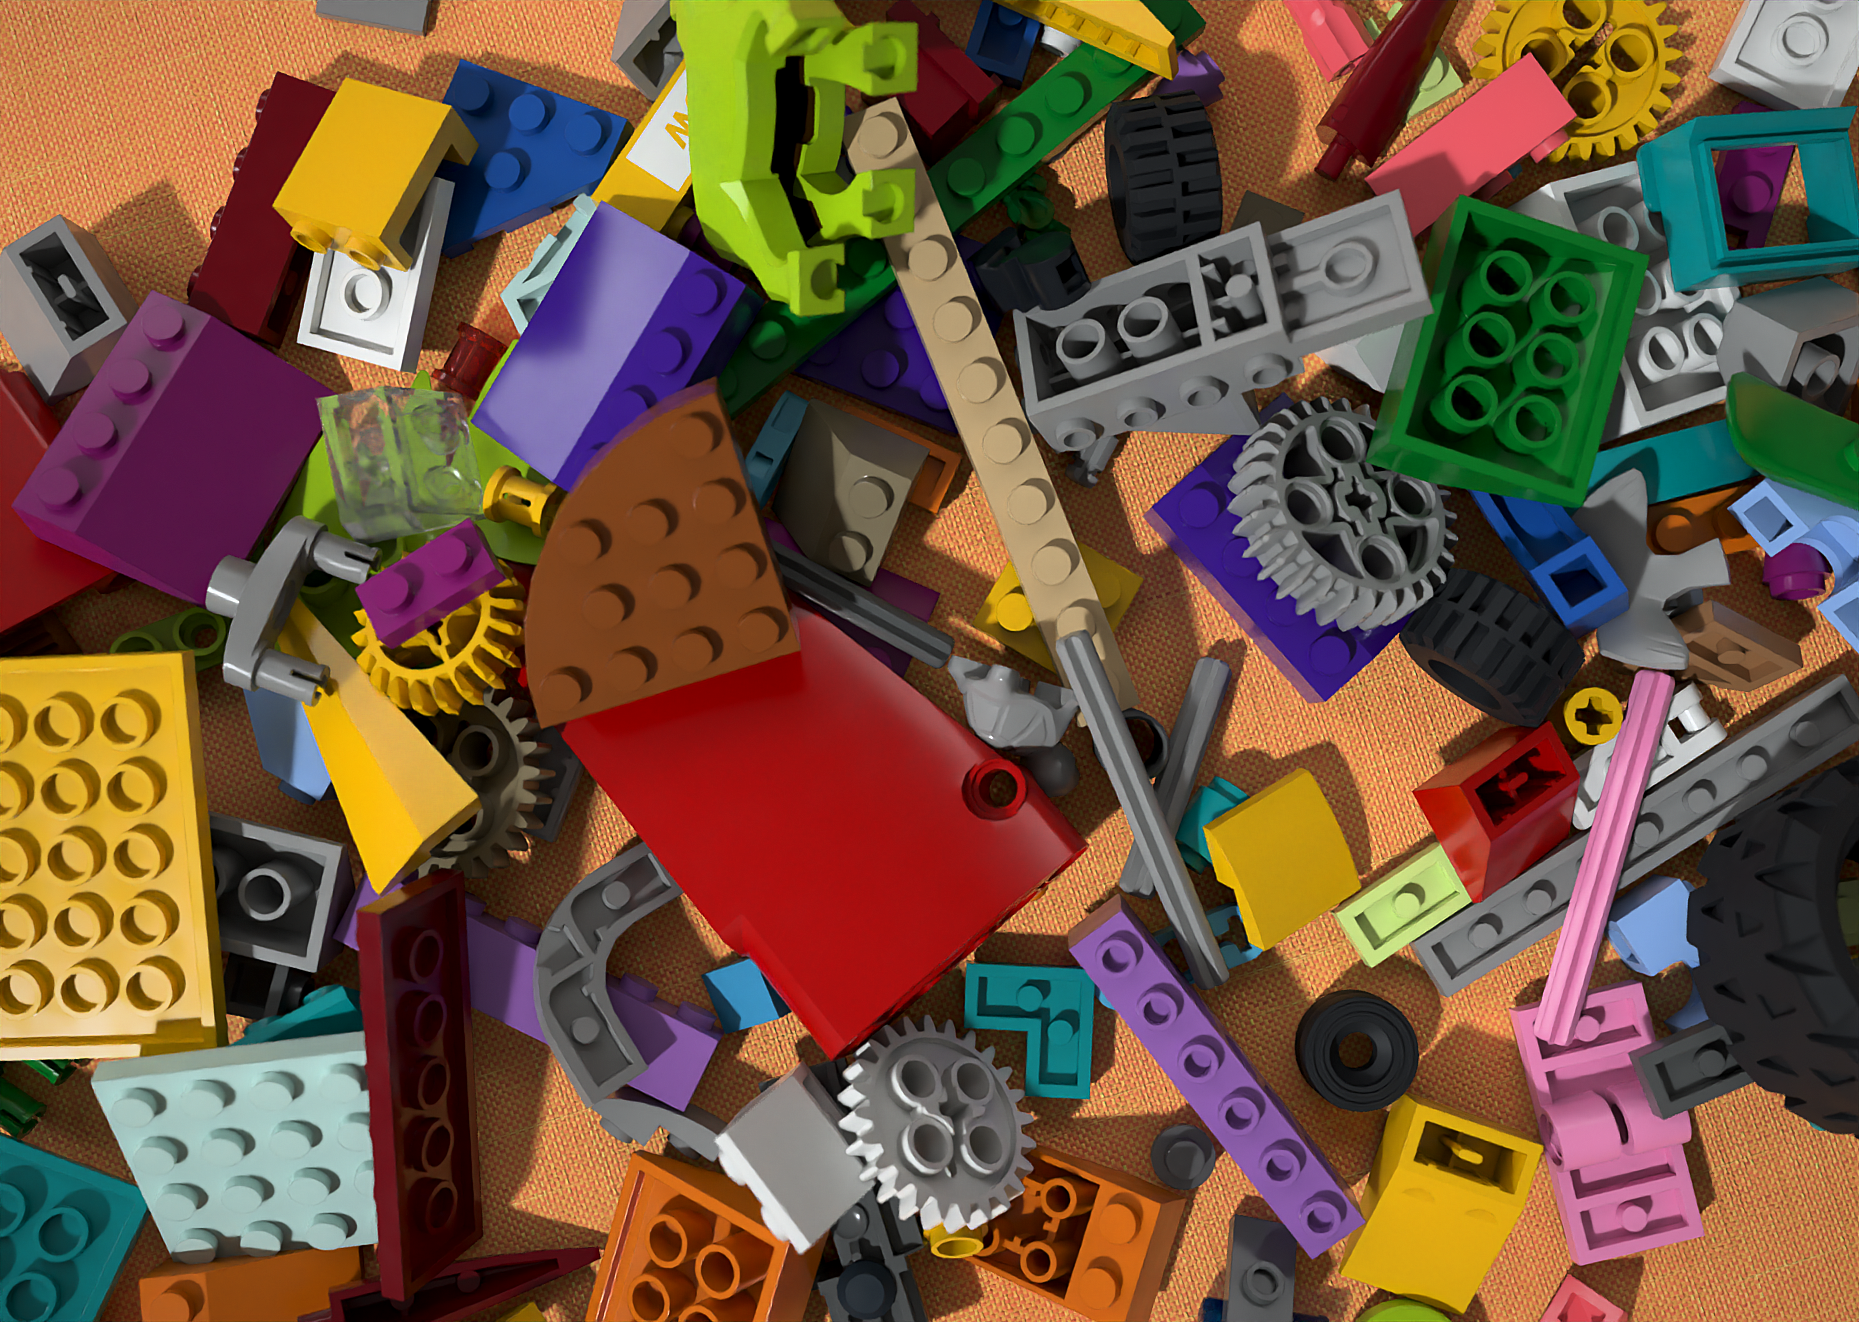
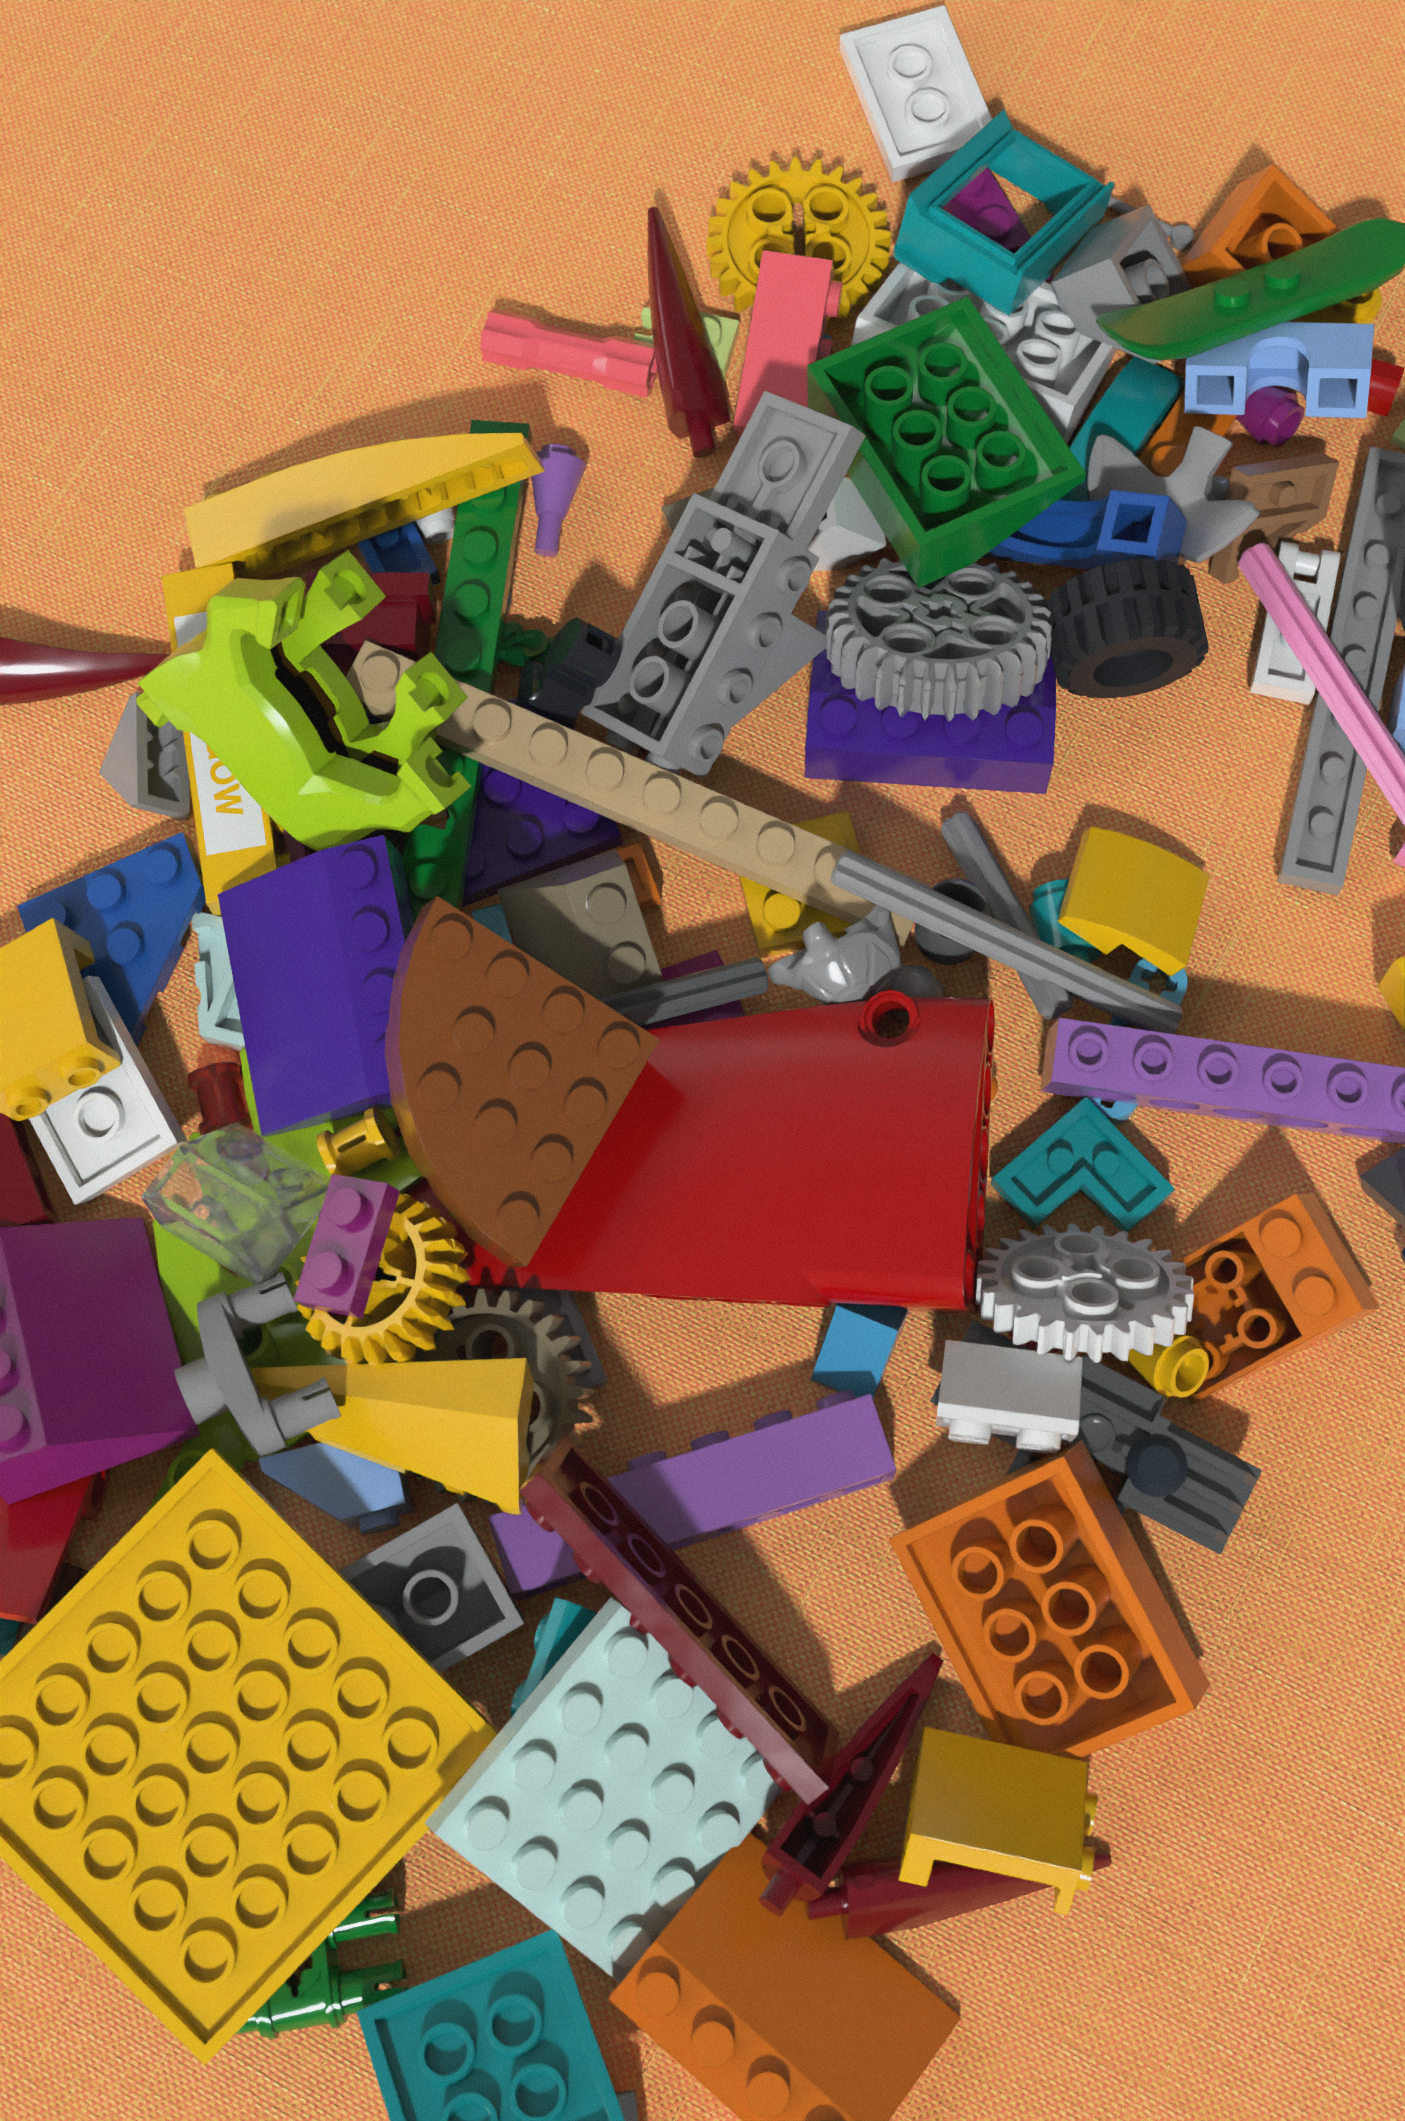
camera: 30 degrees left, 15 degrees down
(264, 988) = (494, 1680): dark grey bracket -> none
(572, 971) = (717, 1439): light grey plate -> none
(636, 1116) = (869, 1512): light grey slope -> none
(1091, 461) = (731, 768): light grey piece -> none
(1162, 174) = (595, 536): black tyre -> none
(1183, 1156) = (1281, 1170): flat silver plate -> none
(1392, 1059) = (1333, 950): black tyre -> none
(1402, 905) = (1248, 857): yellowish green plate -> none
(1502, 805) = (1243, 726): red slope -> none
(1604, 712) = (1234, 624): yellow bush -> none

